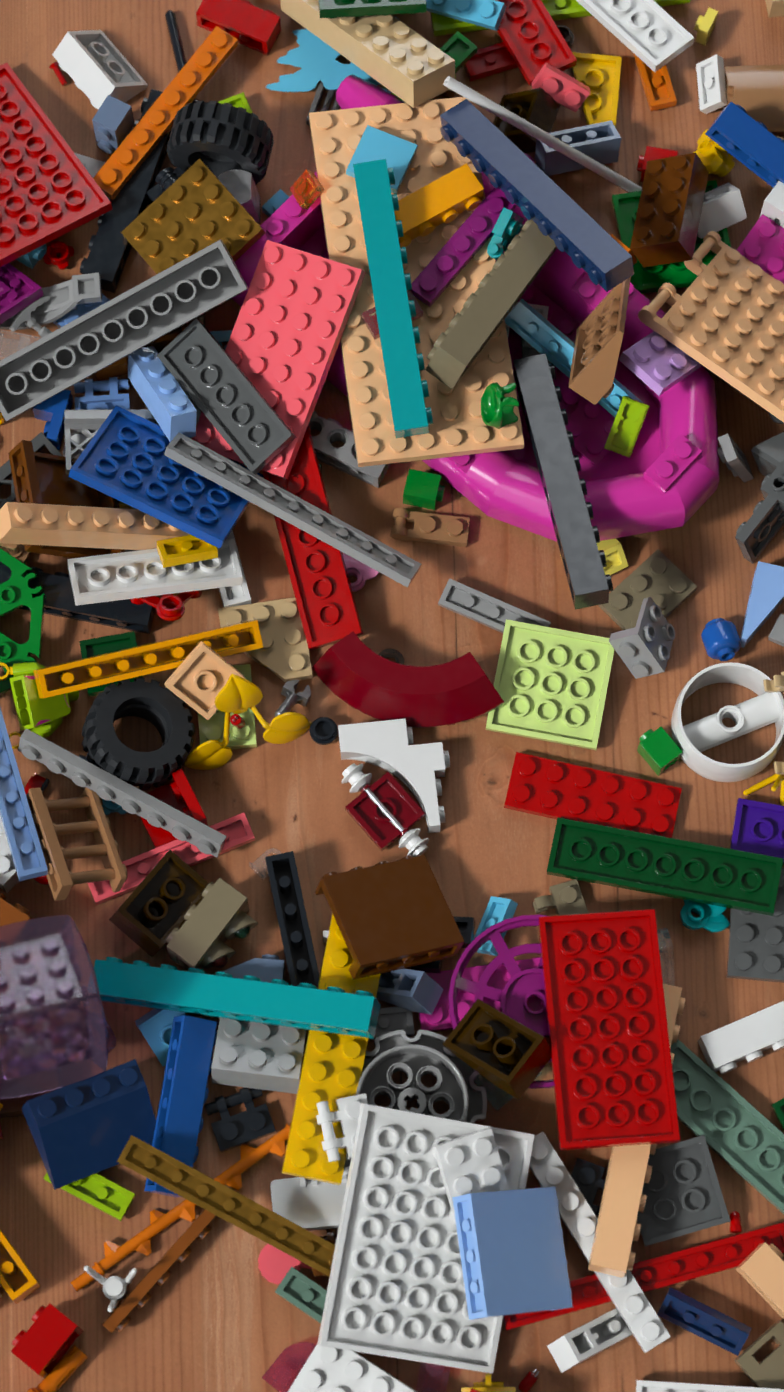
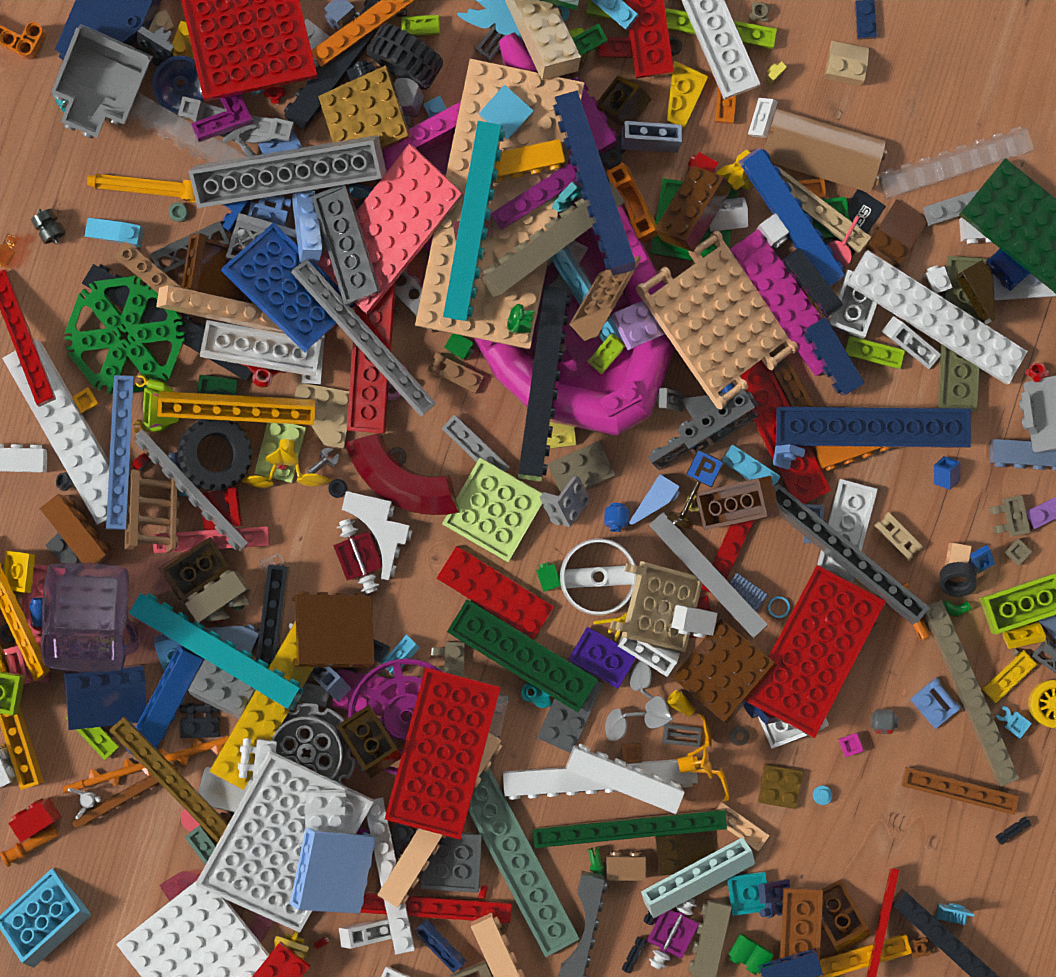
camera: 25 degrees right, 15 degrees up
(184, 550) = (279, 341): yellow plate -> none
(201, 679) = (266, 435): light nougat plate -> none
(307, 189) = (449, 115): clear orange plate -> none
(540, 135) = (624, 127): white piece -> none
(561, 87) = (655, 88): coral plate -> none

